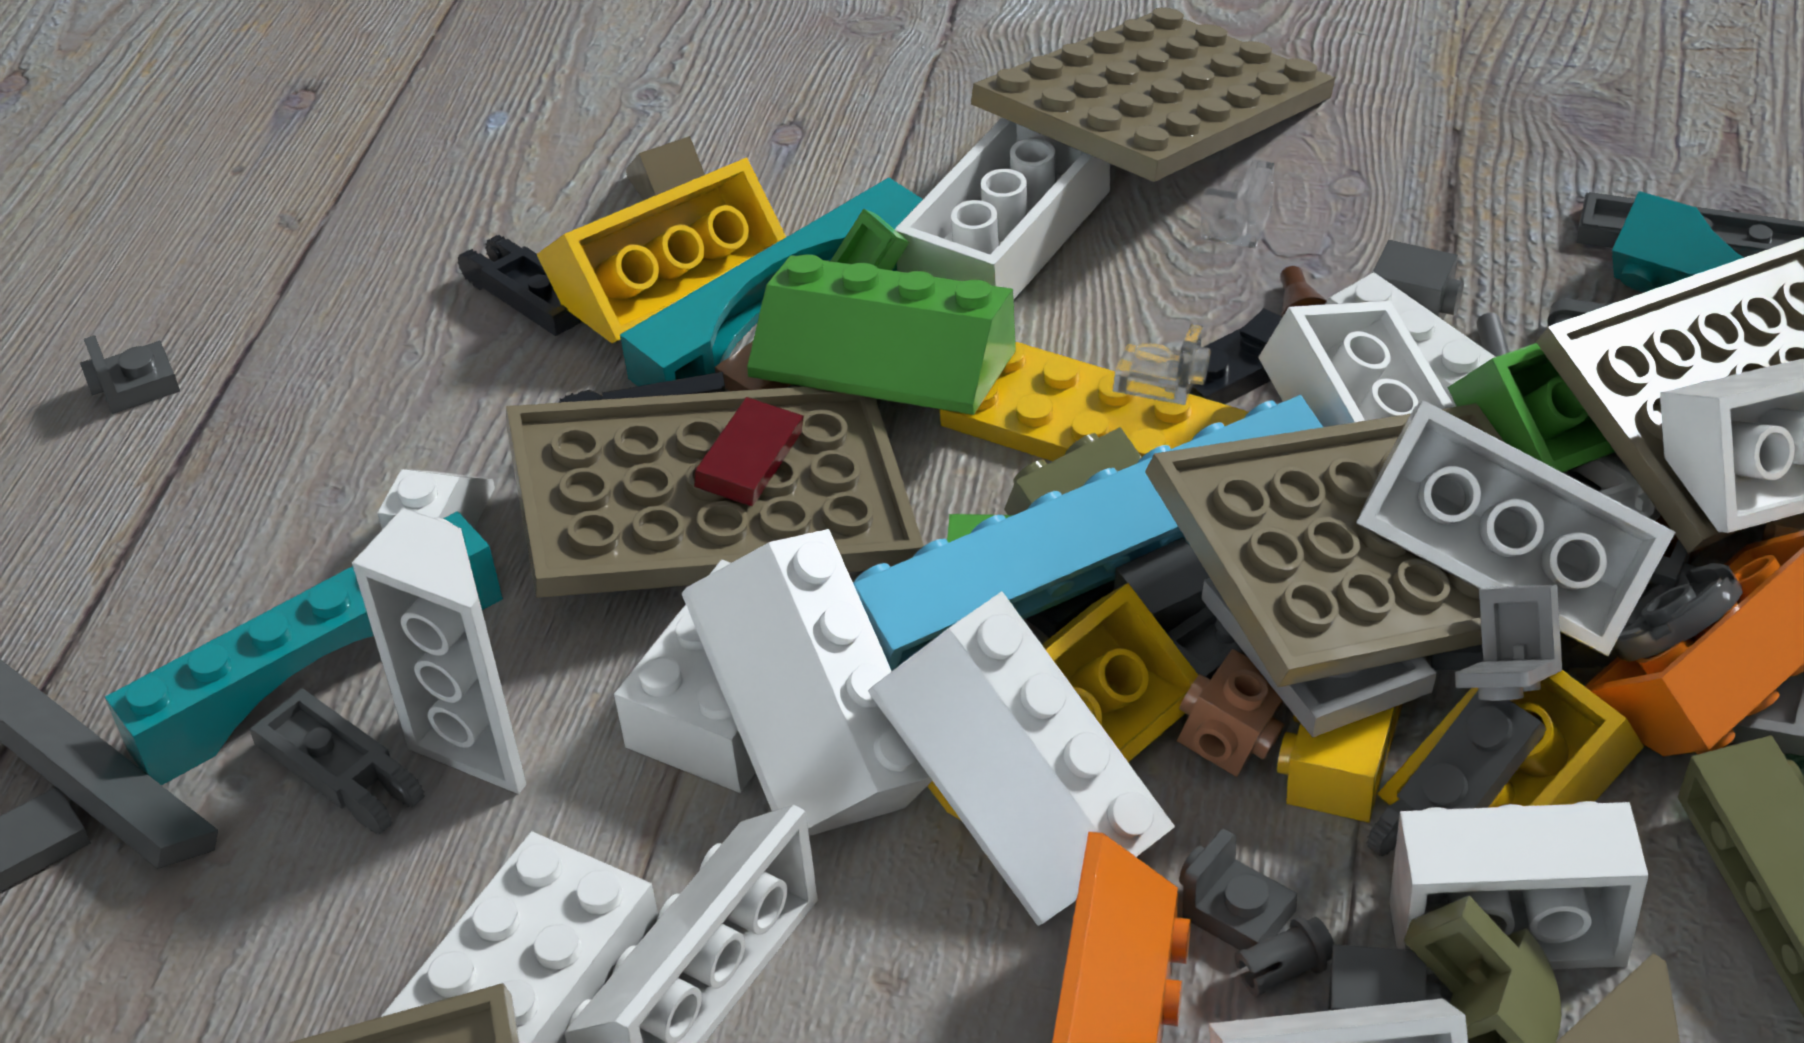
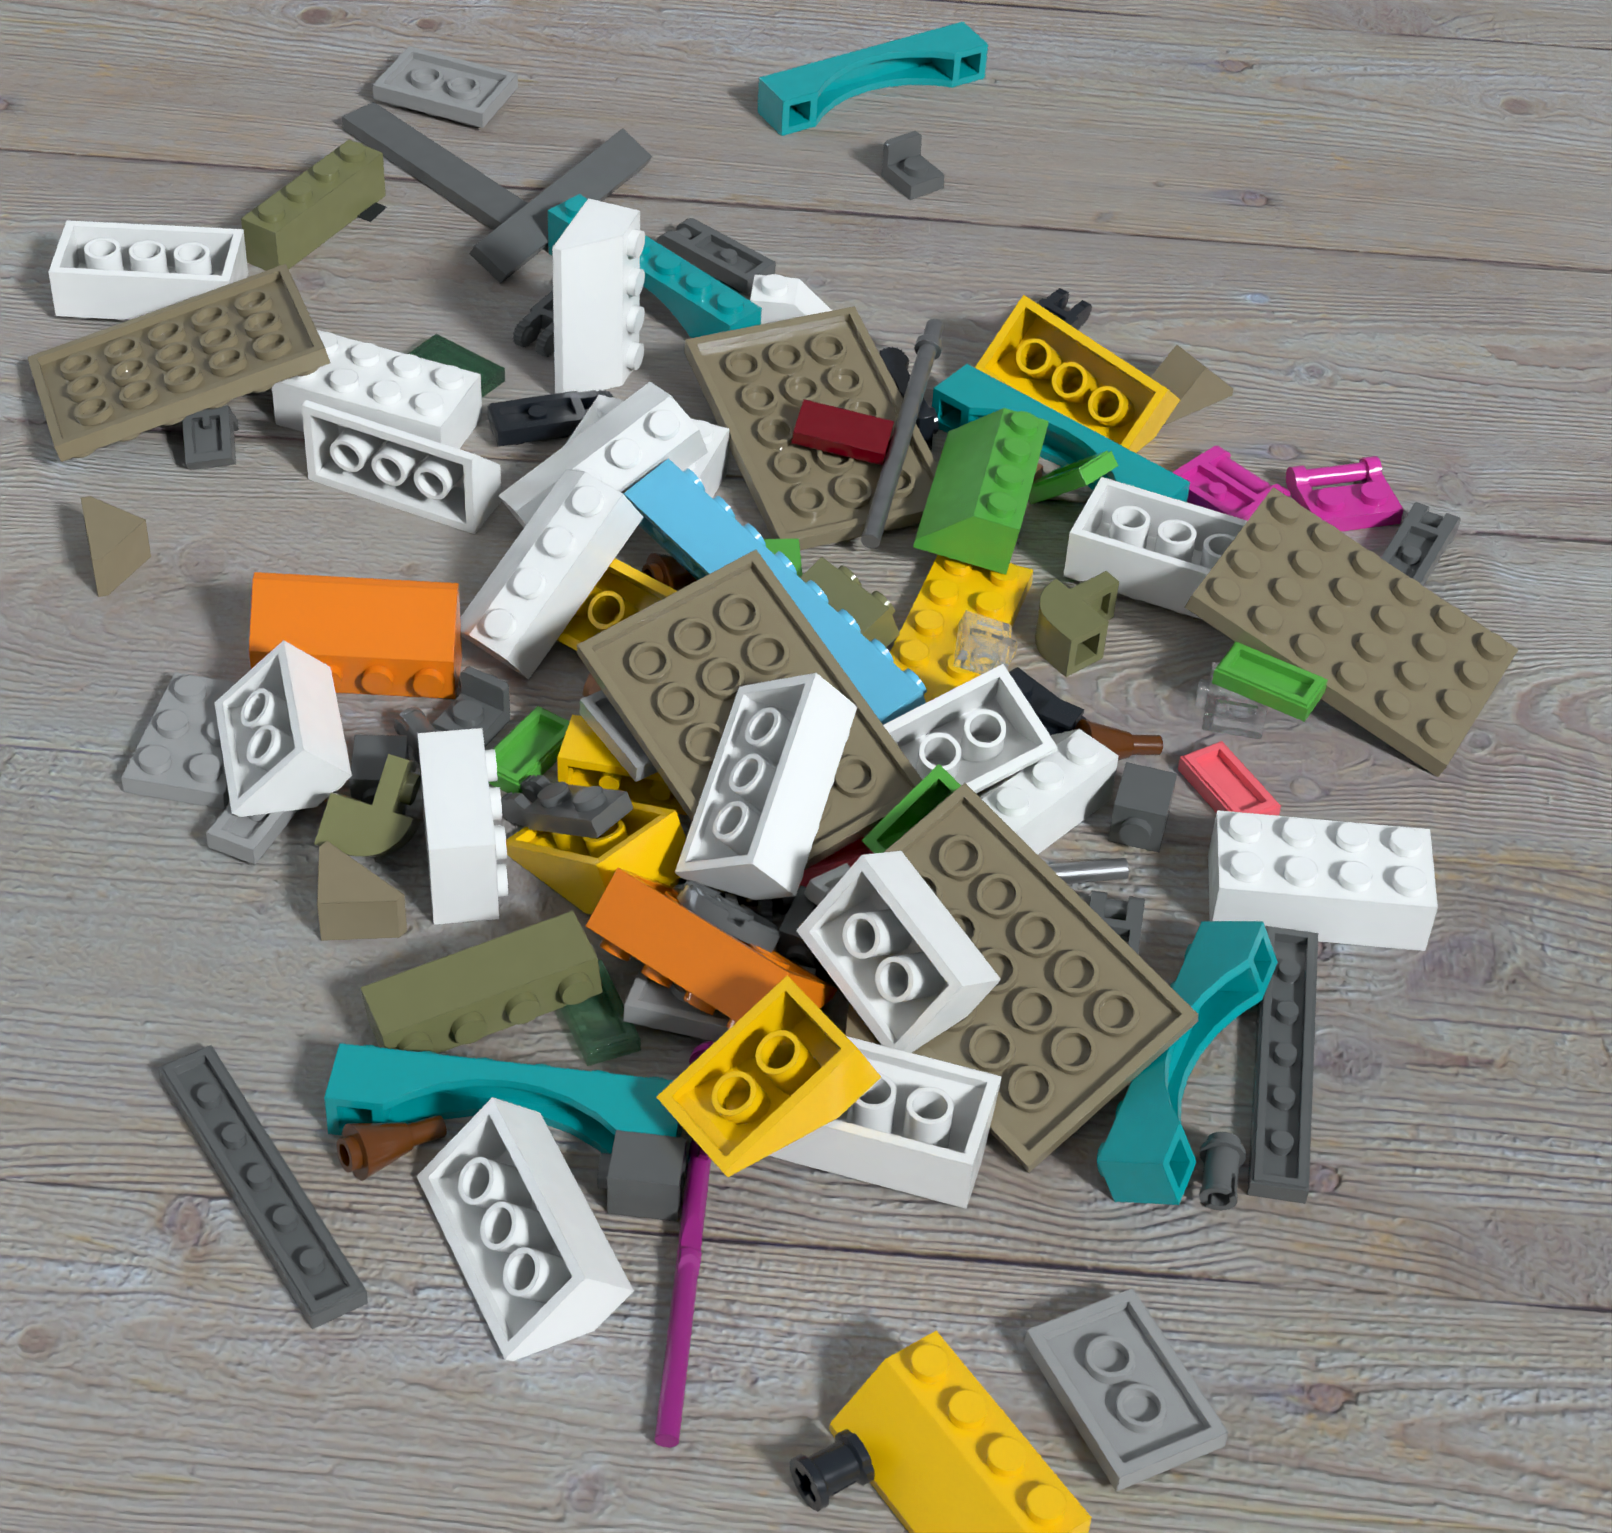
camera: 75 degrees right, 0 degrees up
(257, 580) = (717, 254): none -> dark grey plate
(423, 905) = (451, 354): none -> clear green tile
(592, 787) = (540, 416): none -> black hinge
(609, 350) = (928, 348): none -> flat silver bar
(868, 163) = (1224, 484): none -> dark pink plate
(903, 93) = (1350, 505): none -> dark pink plate
(978, 46) = (1421, 542): none -> dark grey plate
(1100, 314) = (1075, 622): none -> olive brick
(1249, 152) = (1269, 681): none -> bright green tile
(1302, 845) = (529, 749): none -> bright green tile
(1357, 232) = (1226, 781): none -> coral tile
(1517, 642) = (626, 796): light grey bracket -> none
(1523, 175) = (1324, 878): none -> white brick

